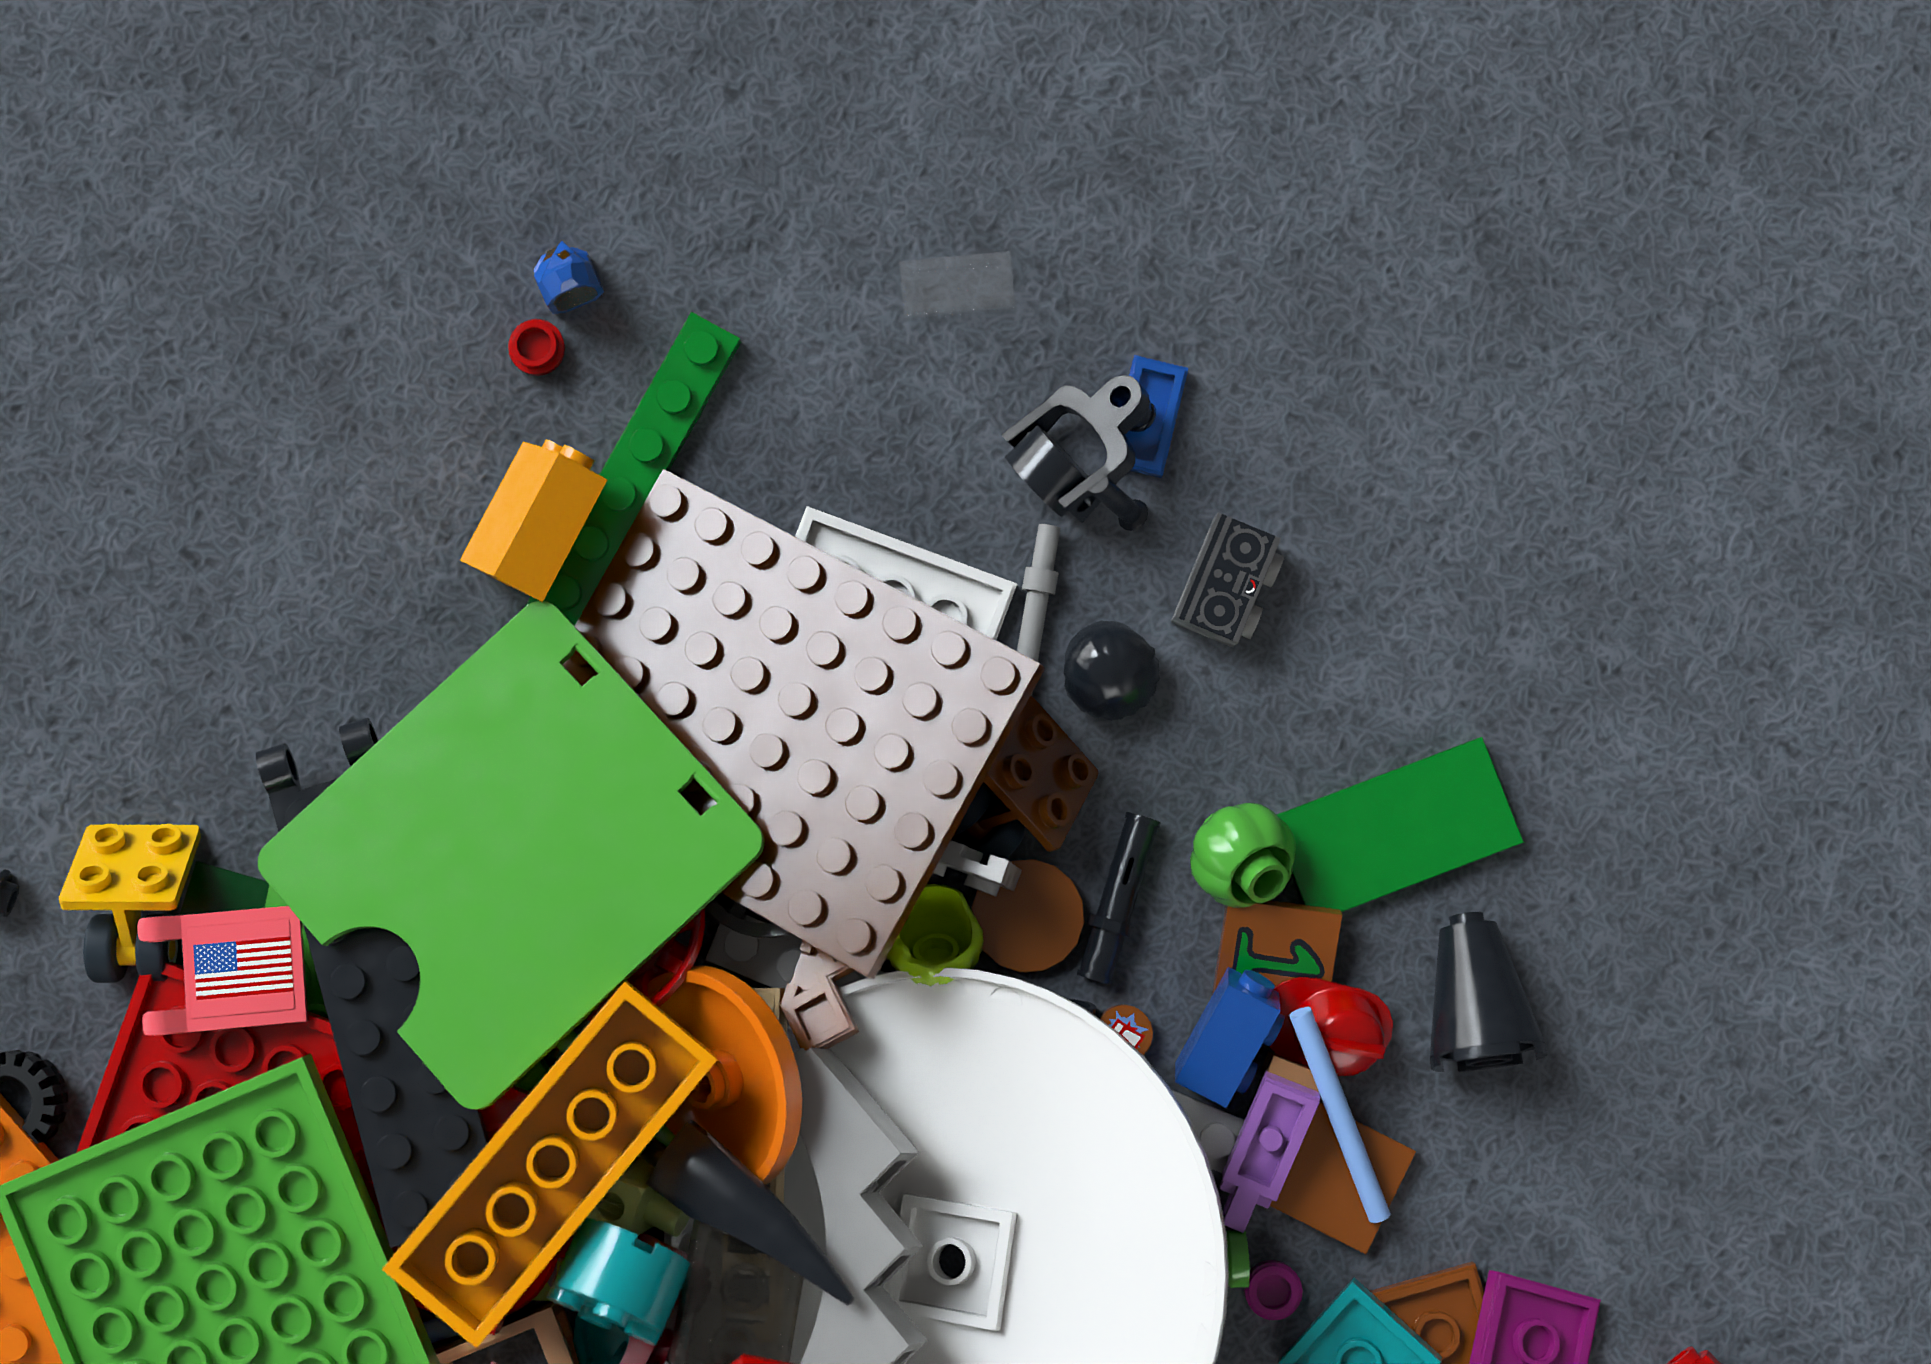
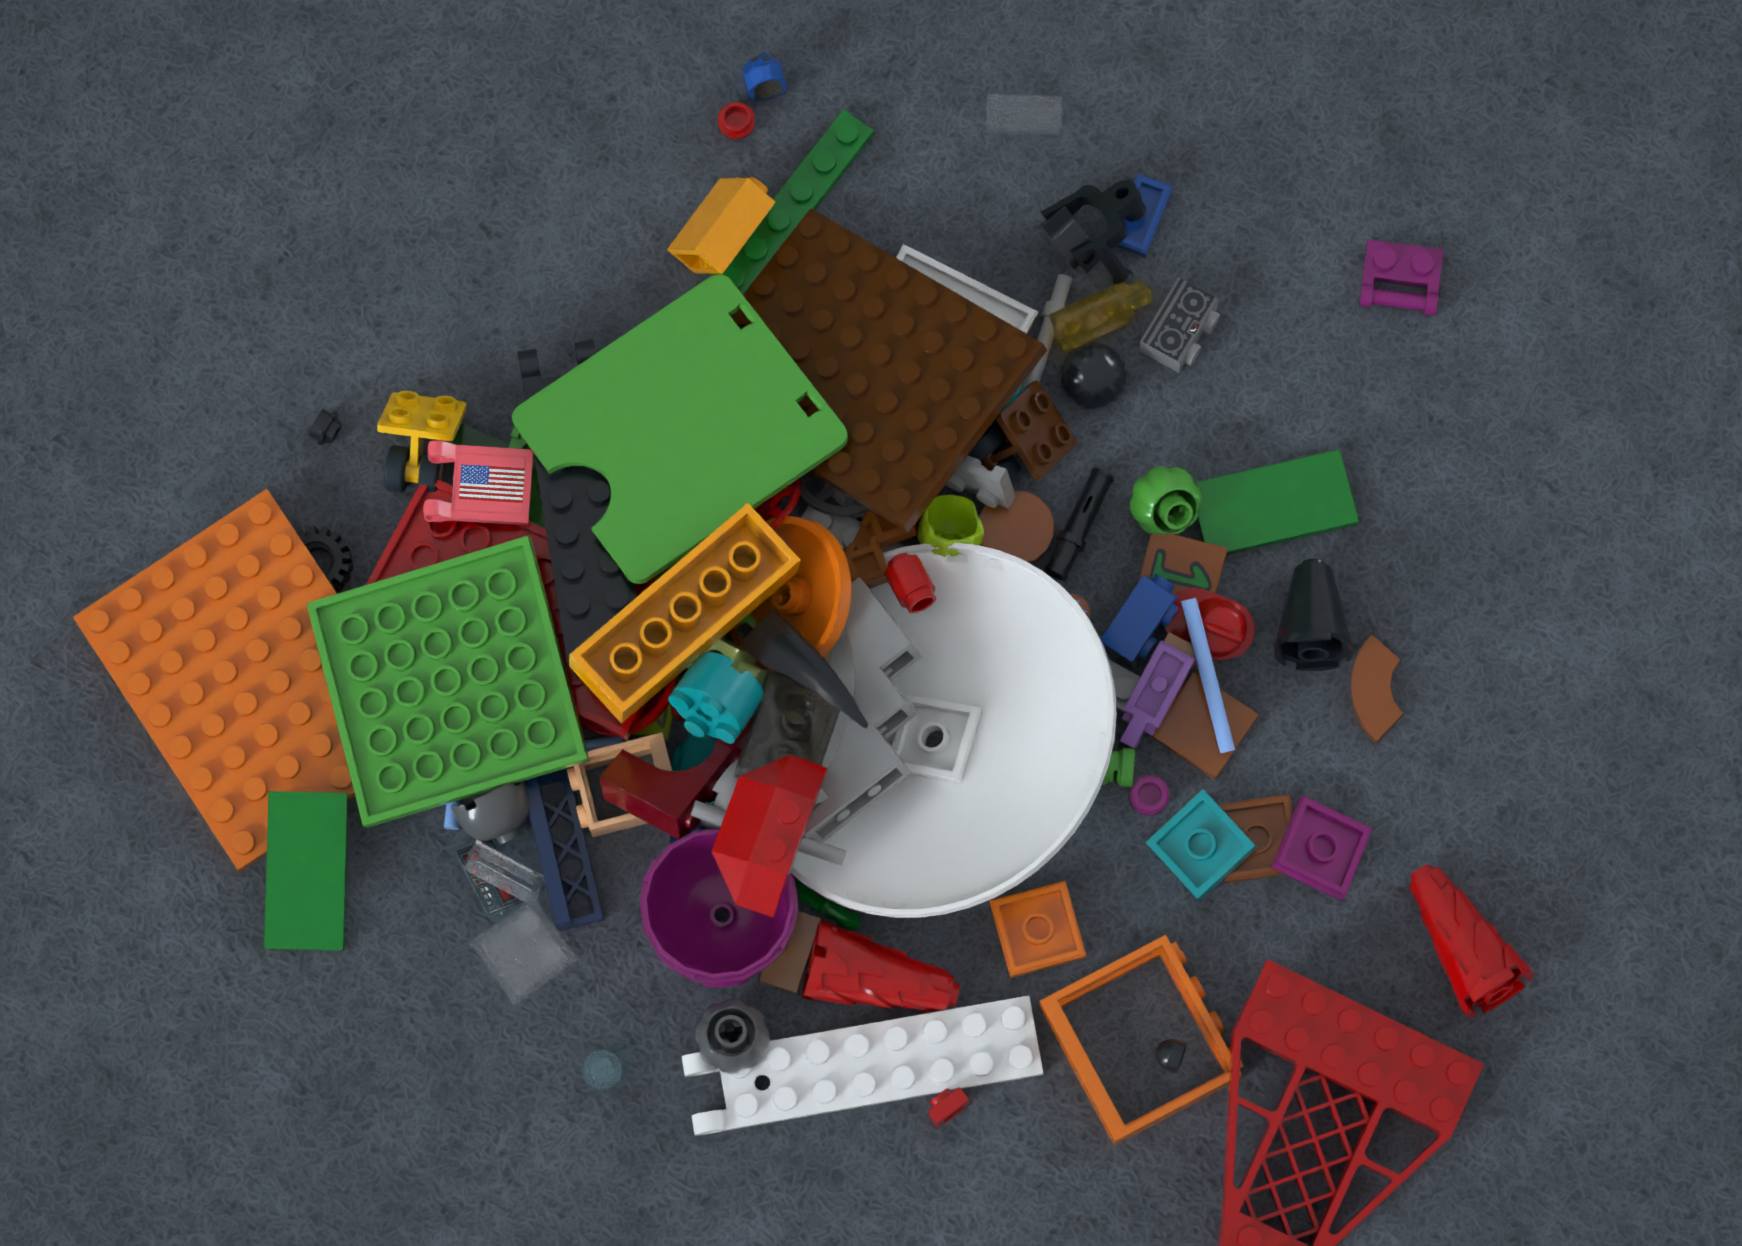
camera: 15 degrees right, 10 degrees down
(886, 1043) = (910, 582): none -> red brick
(1107, 578) = (1098, 314): none -> clear yellow hinge
(1537, 446) = (1403, 266): none -> magenta plate
(1573, 1088) = (1371, 689): none -> dark orange tile

